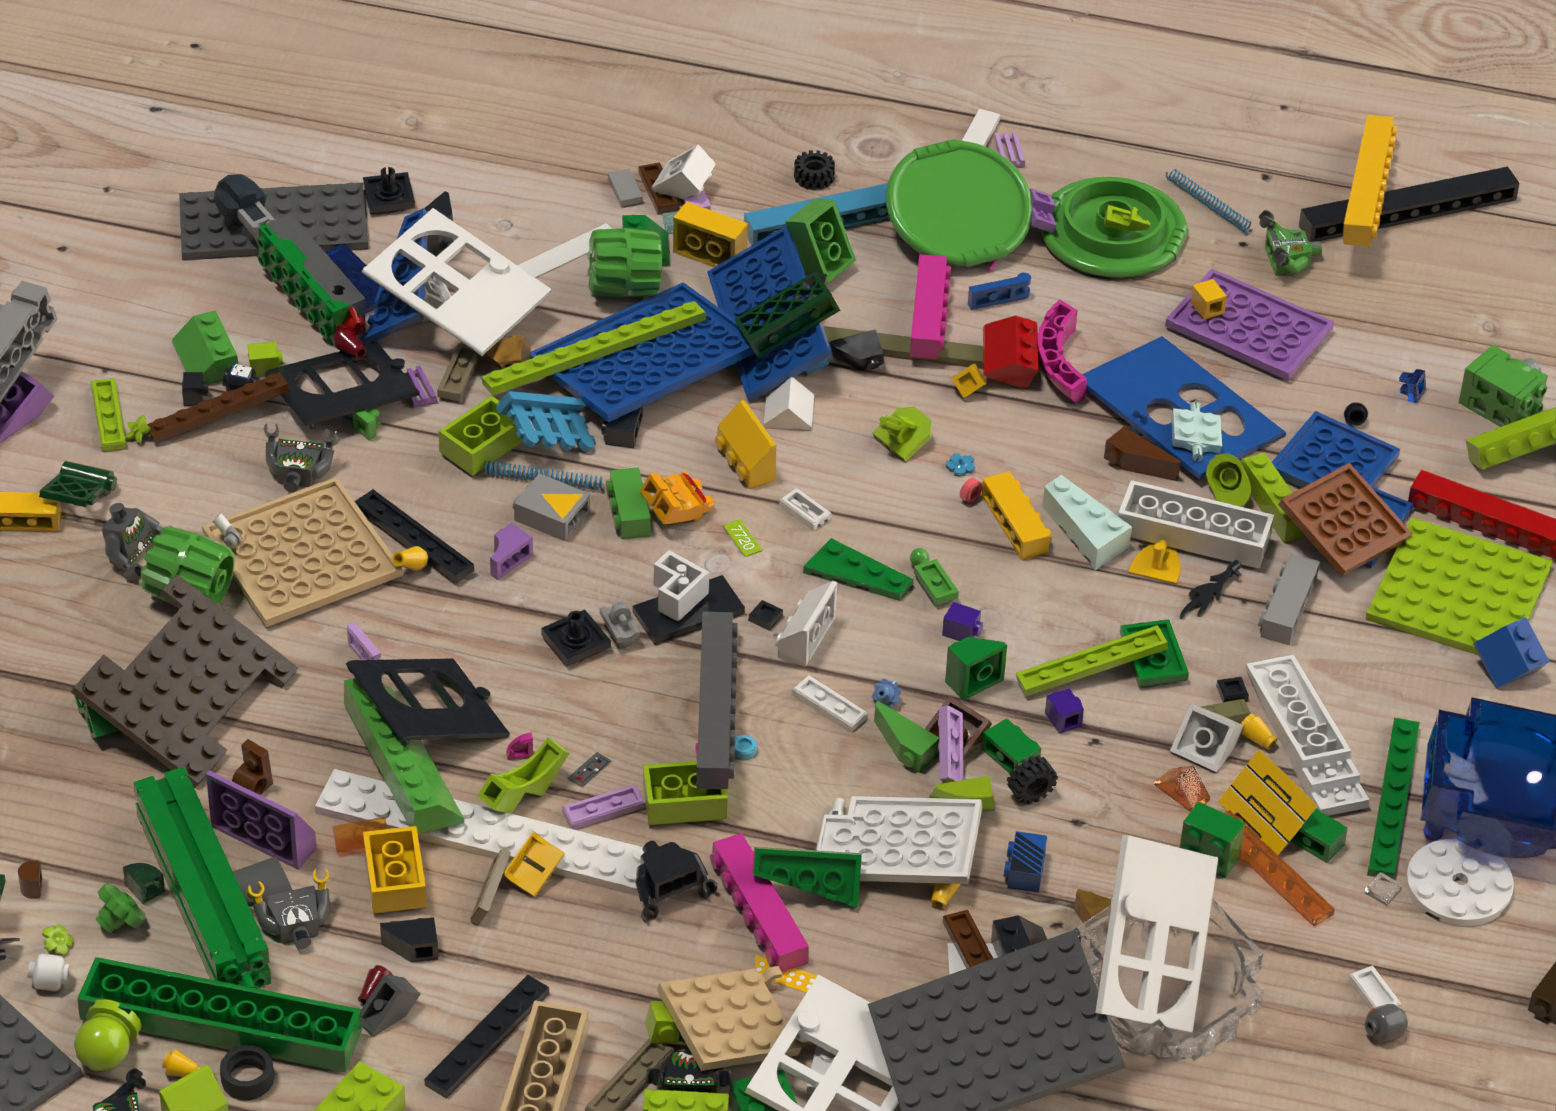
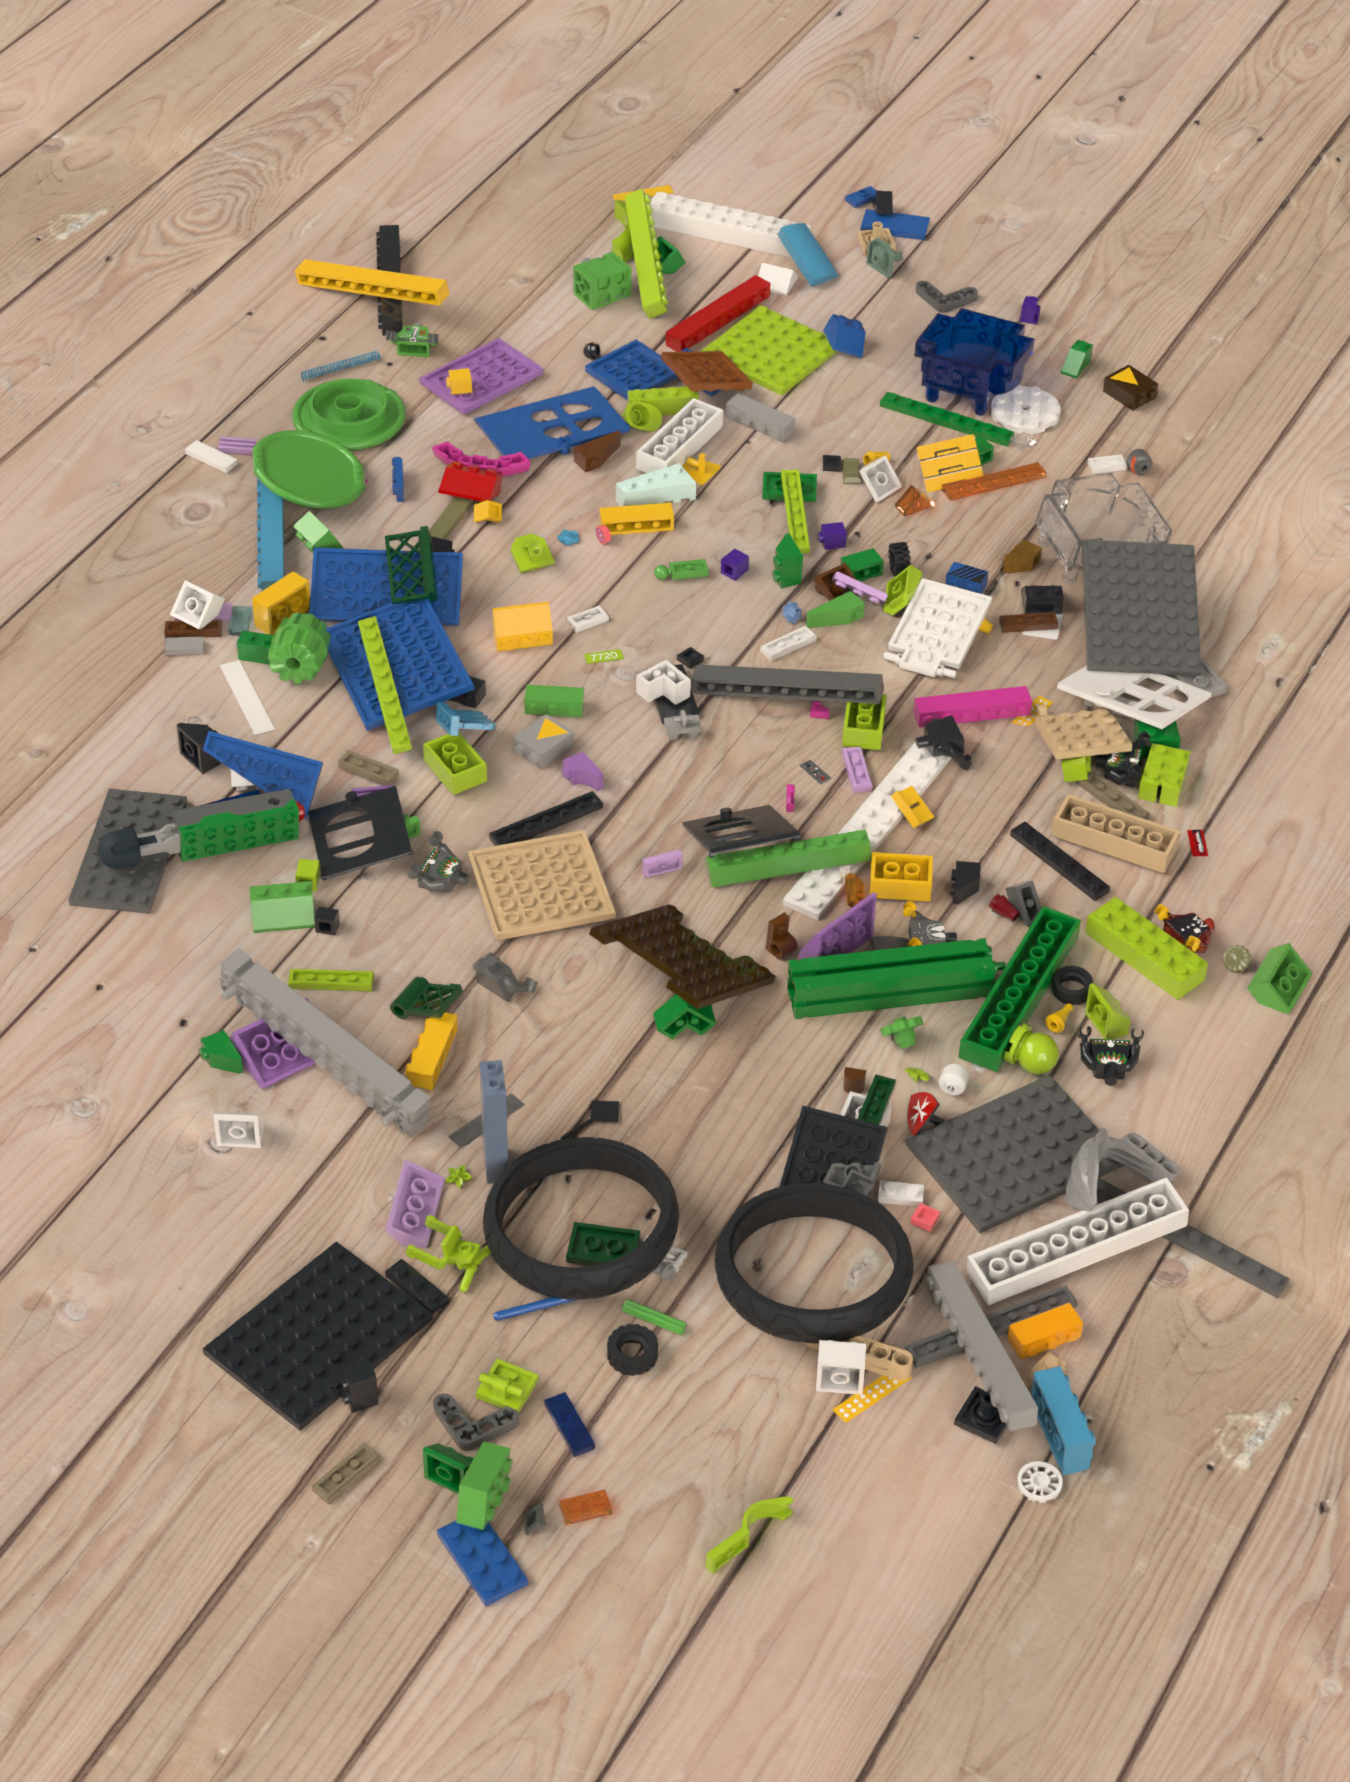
camera: 75 degrees left, 0 degrees up
(138, 429) = (361, 961): lime plant -> none
(143, 881) = (873, 1017): clear green brick -> none
(194, 558) = (559, 938): bright green wheel -> none
(218, 407) = (359, 908): reddish brown plate -> none
(232, 536) = (516, 915): arm -> none
(238, 376) = (330, 890): black head -> none
(348, 343) = (315, 820): dark red cone -> none
(388, 191) = (129, 773): black plate -> none
(411, 558) = (576, 822): yellow cone -> none
(481, 307) = (311, 718): white door -> none
(490, 886) = (925, 833): dark tan tile -> none
(508, 352) = (367, 734): pearl gold slope -> none
(534, 776) = (827, 793): lime arch -> none
(543, 470) = (505, 743): dark azure piece -> none
(576, 637) = (685, 752): black plate -> none
(678, 496) = (566, 671): light orange hips -> none
(789, 407) = (478, 607): white slope -> none
(808, 625) = (717, 630): white slope -> none
(814, 170) = (215, 543): black tyre -> none
(814, 871) = (963, 668): green wing -> none
(858, 570) = (657, 607): green wing -> none
(930, 307) = (404, 513): dark pink brick -> none
(1042, 210) = (340, 438): medium lavender slope -> none
(1124, 219) = (363, 397): lime slope -> none
(1168, 890) = (1103, 494): white door -> none
(1196, 431) = (589, 418): light aqua plate -> none
(1206, 590) = (737, 451): black piece -> none
(1213, 834) = (976, 492): green brick -> none
(1308, 735) = (895, 436): white slope -> none
(1414, 386) = (575, 320): clear blue tile -> none

